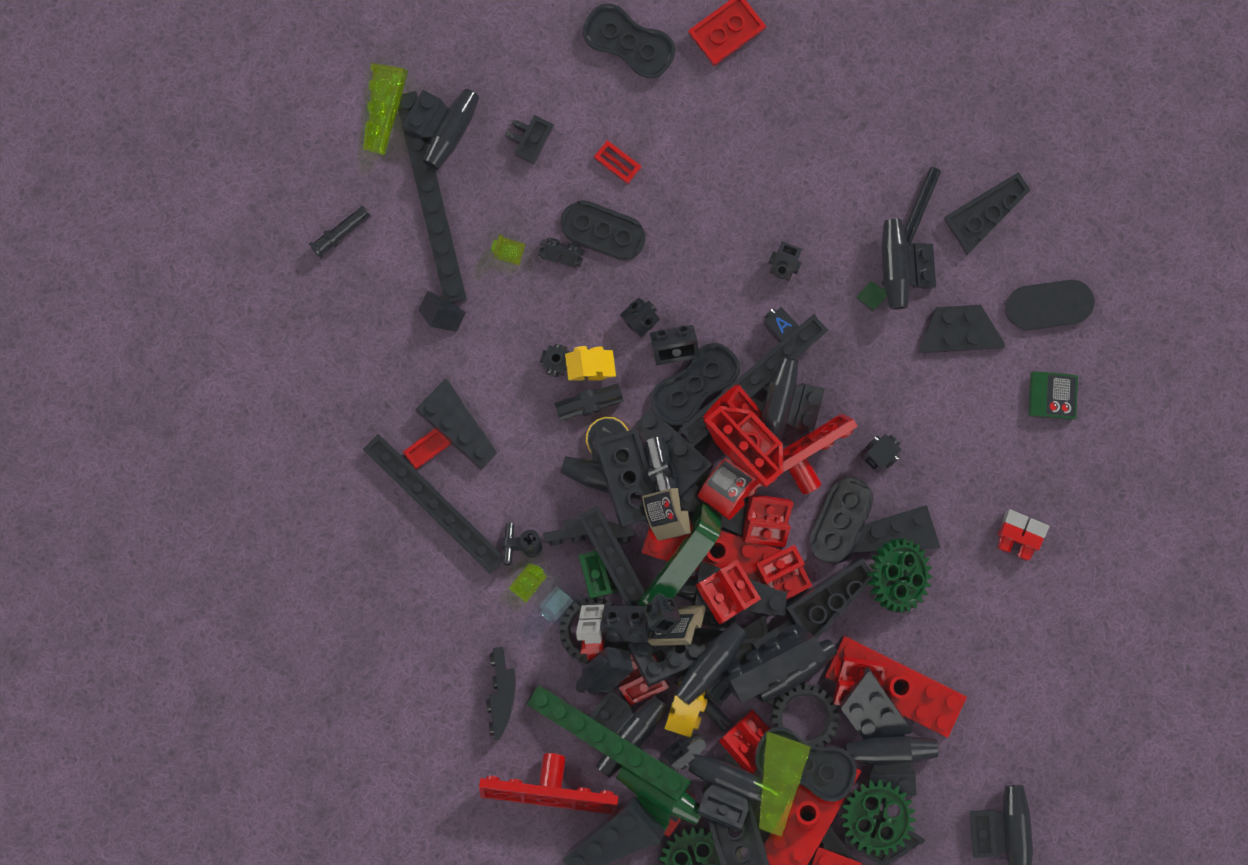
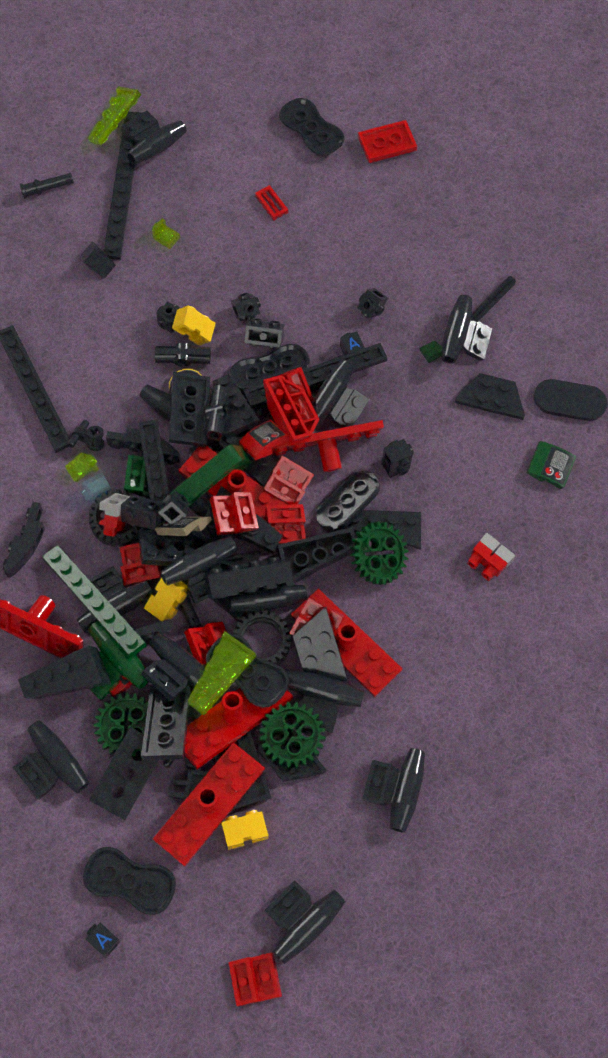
camera: 15 degrees right, 15 degrees down
(426, 448) = (46, 348): red tile -> none
(452, 419) = (75, 338): black wing -> none
(533, 139) = (215, 168): black hinge -> none
(553, 249) = (198, 244): black hinge -> none
(603, 230) = (242, 244): black tile -> none
(605, 671) = (113, 545): black hinge -> none
(665, 514) = (205, 438): slope -> none
(982, 214) = (537, 320): black wing -> none

